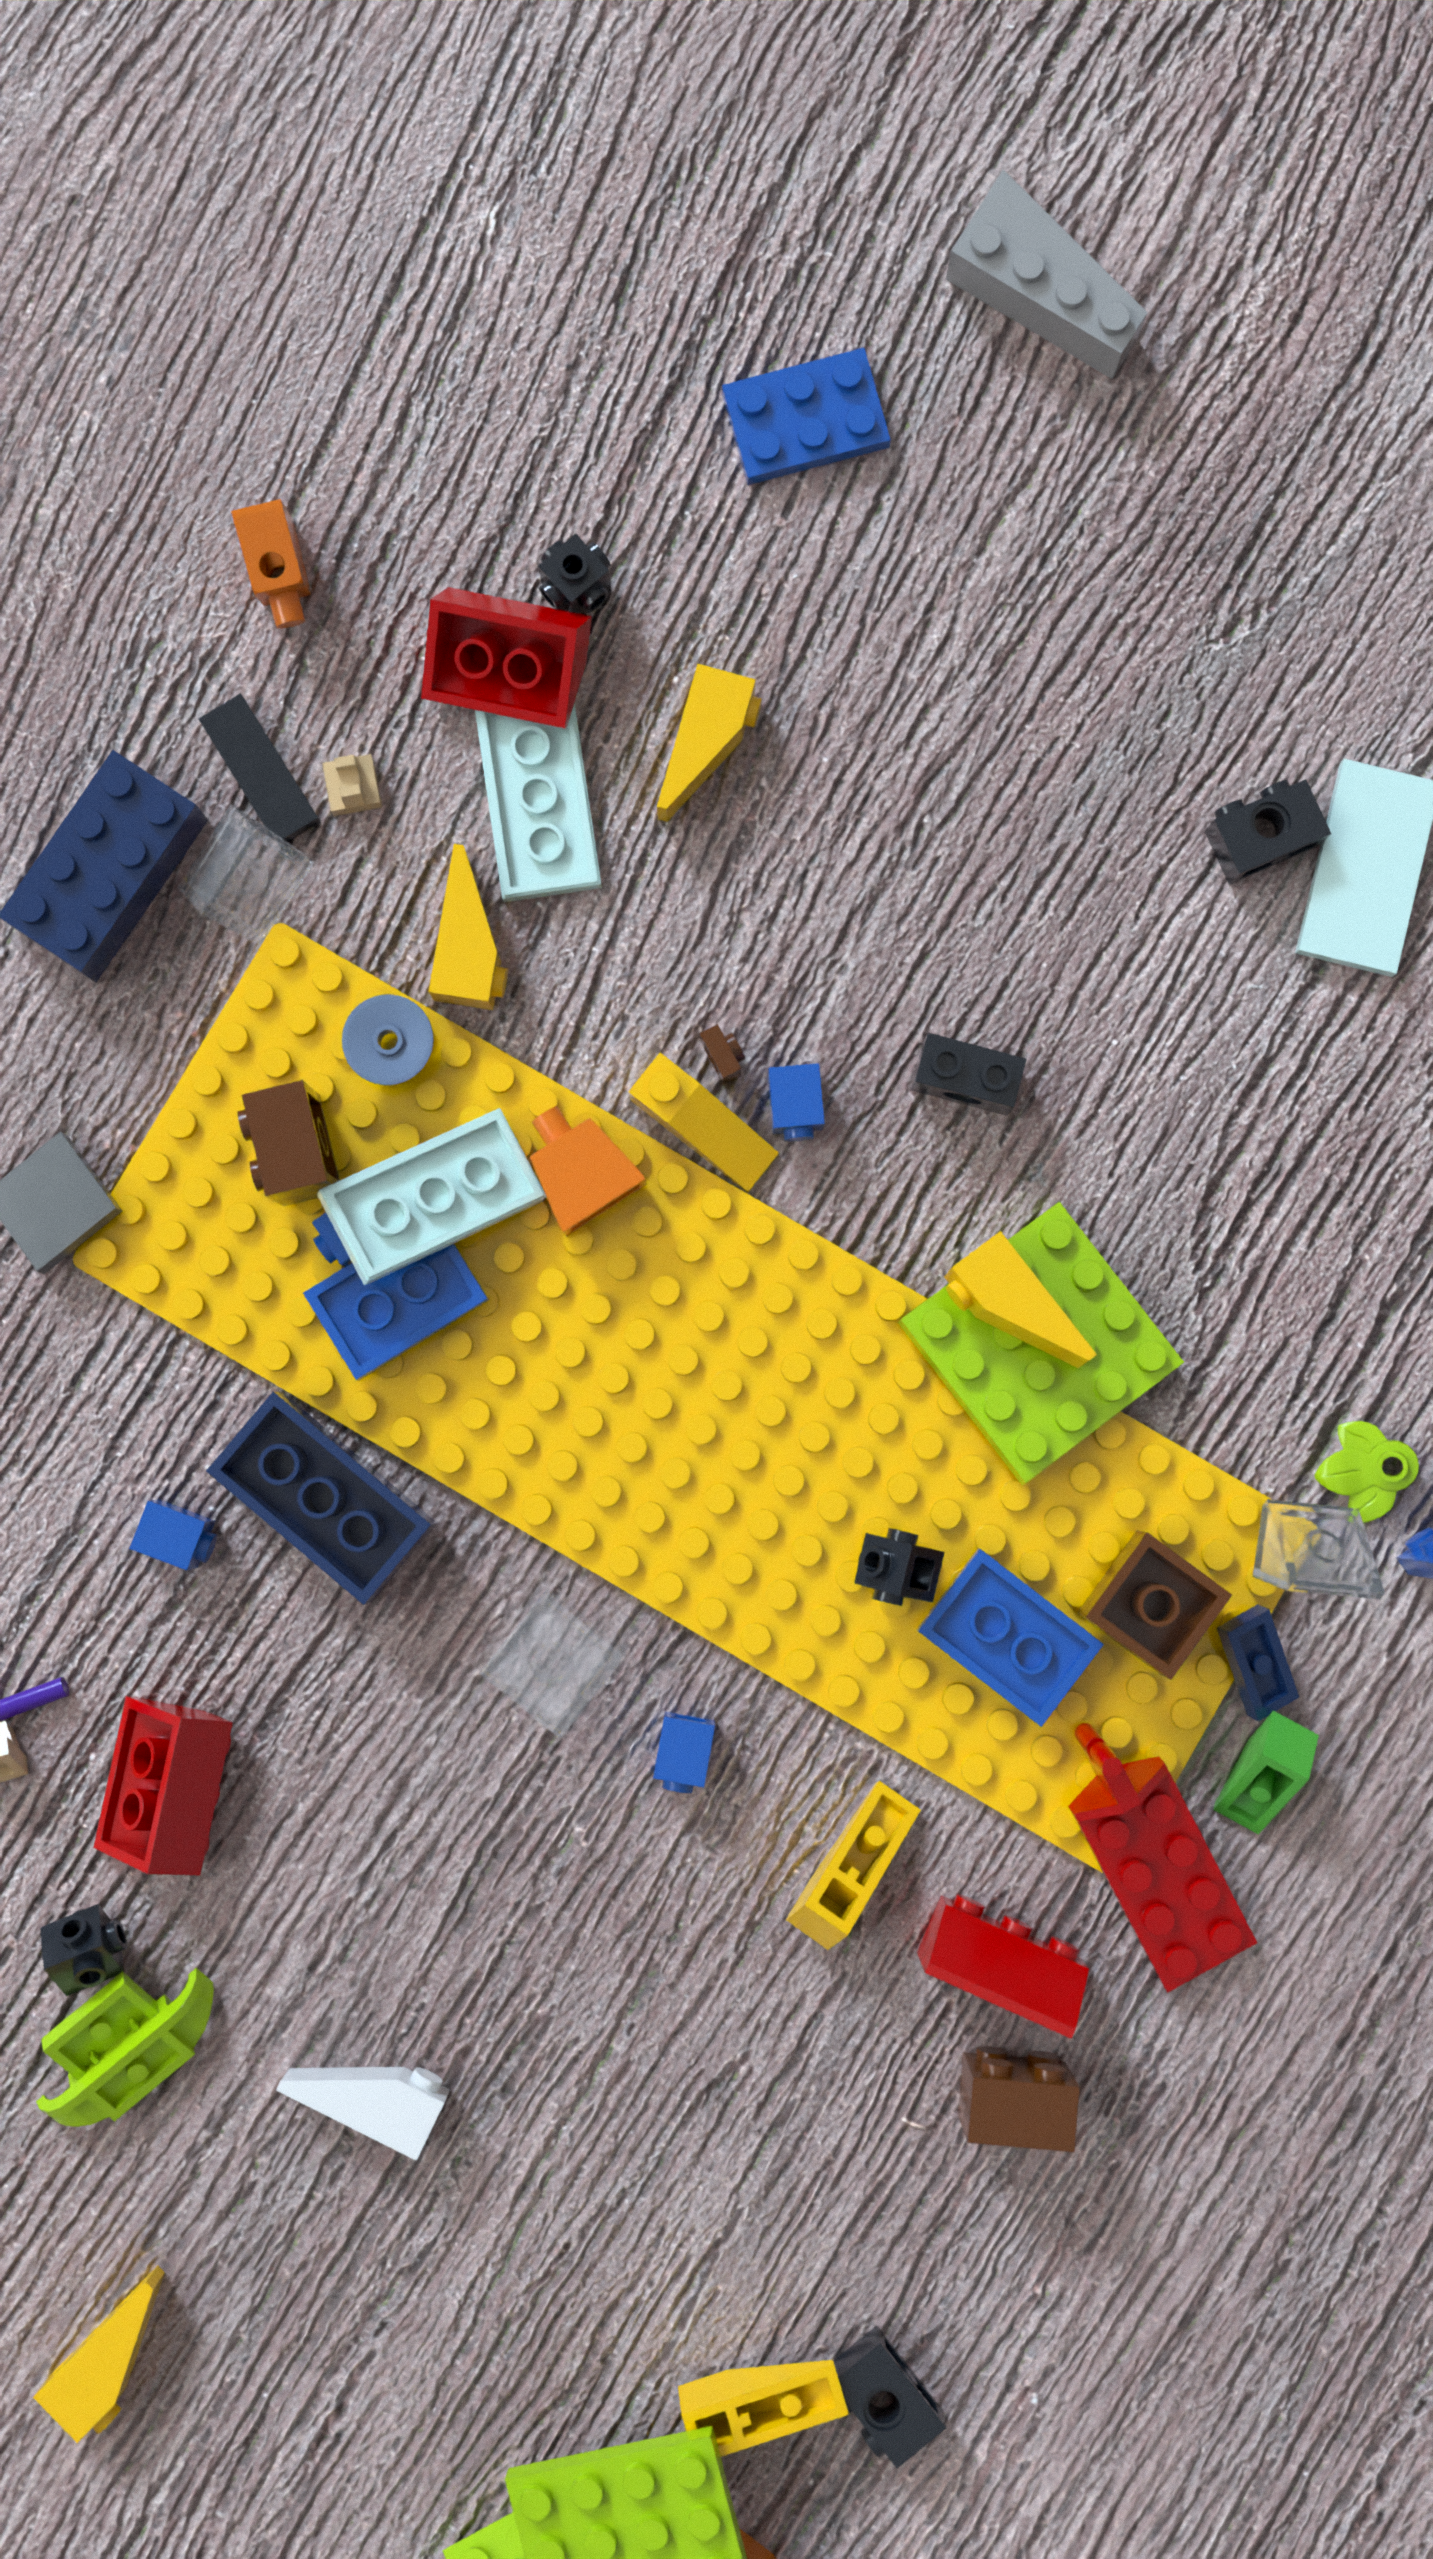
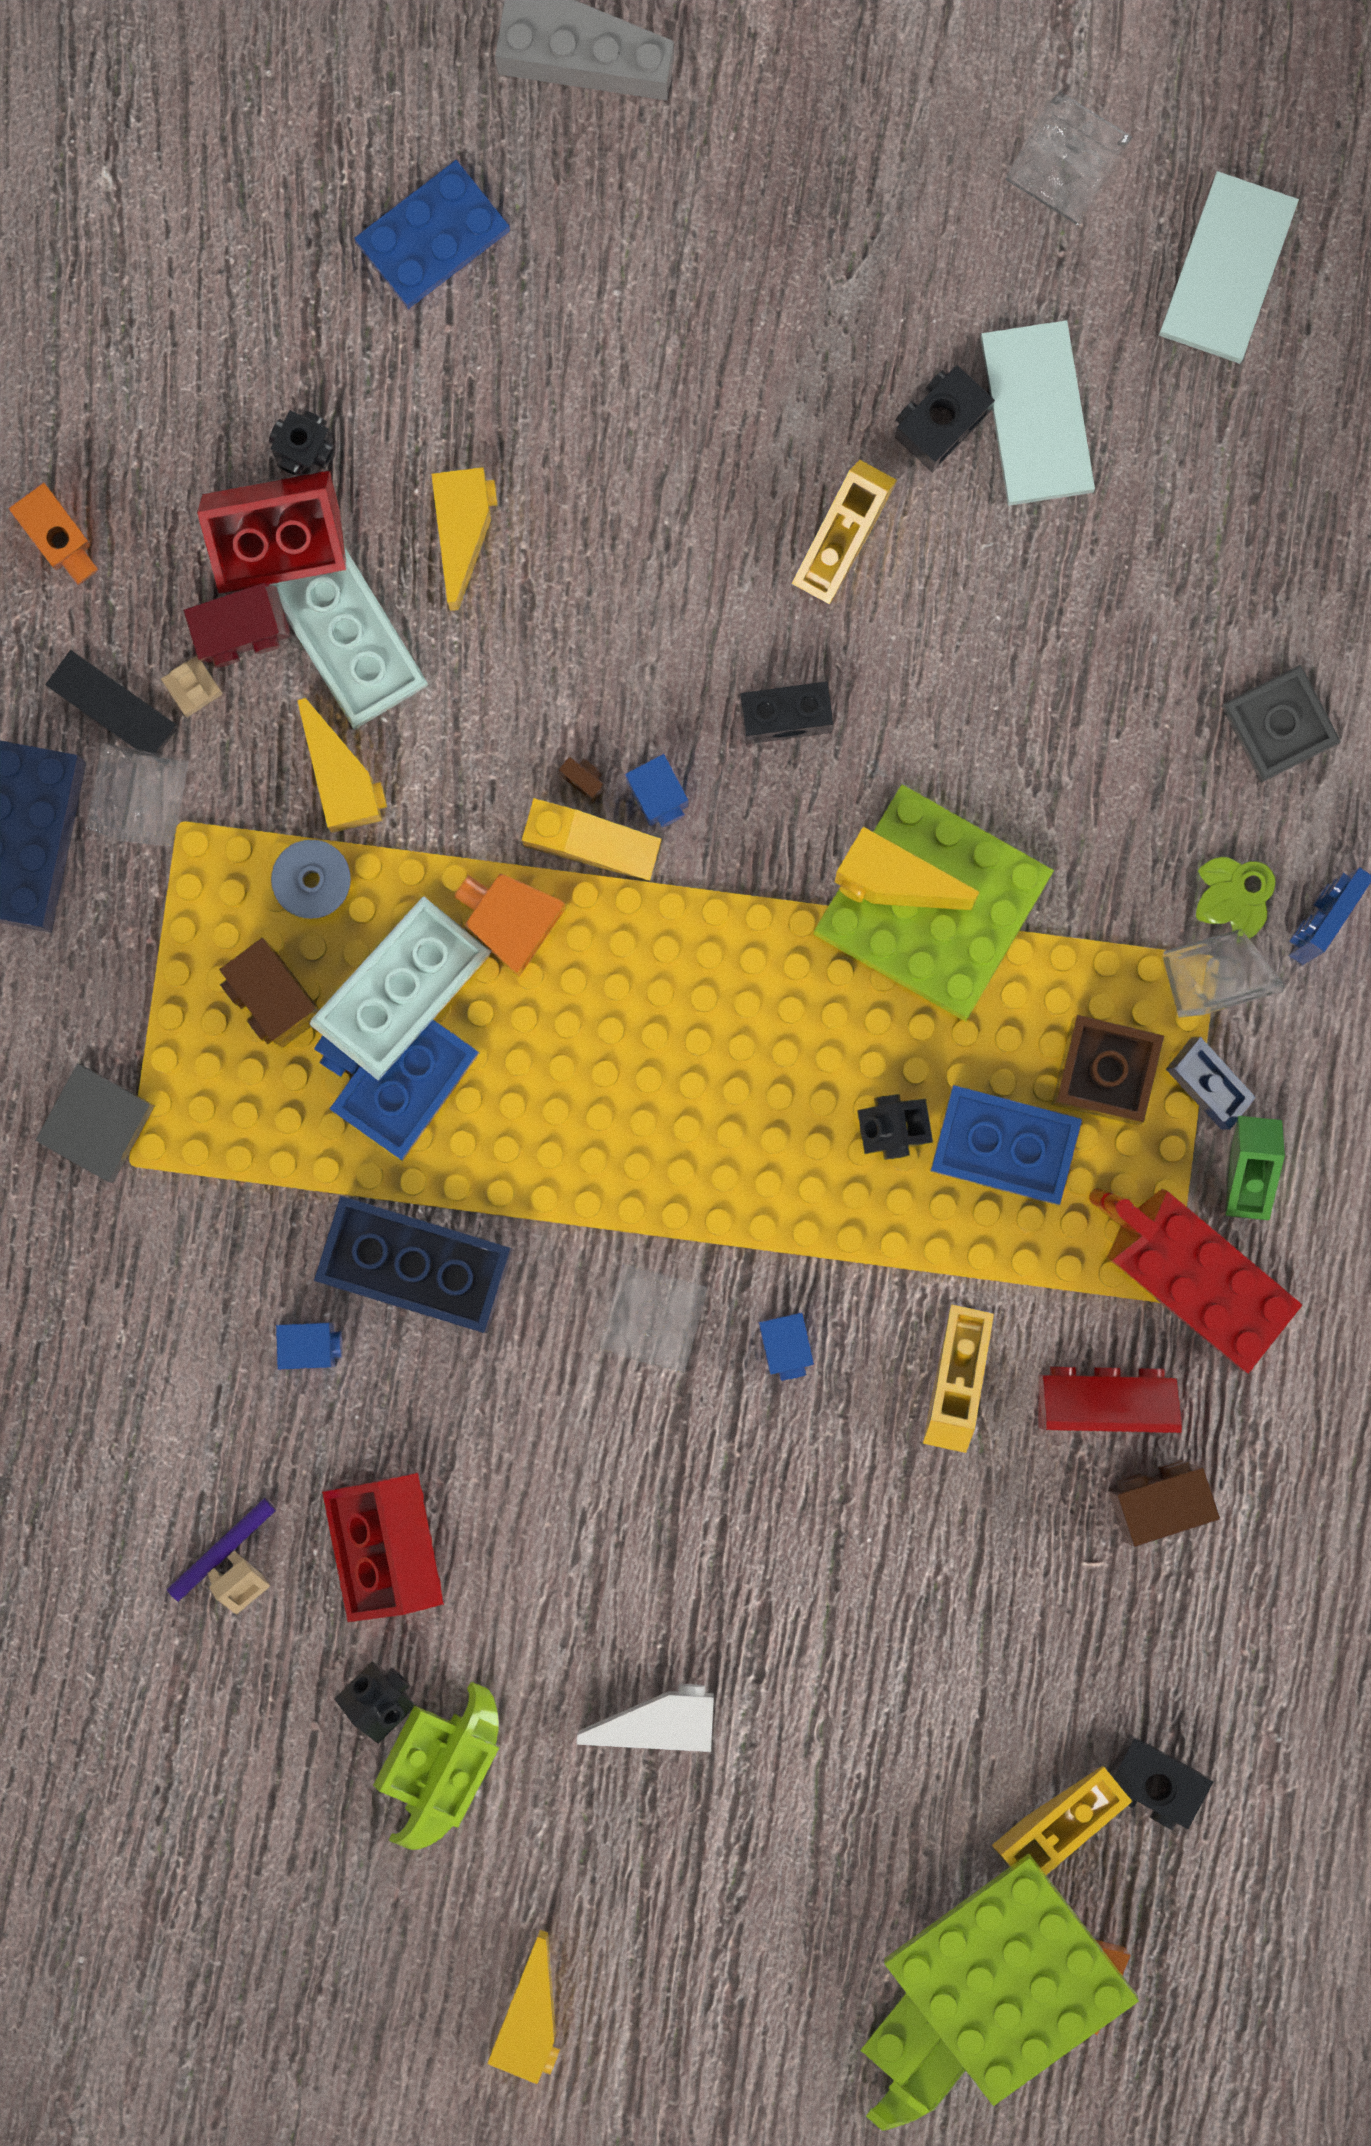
camera: 20 degrees left, 0 degrees up
(426, 738) = (237, 625): none -> dark red brick
(1110, 907) = (844, 530): none -> yellow slope

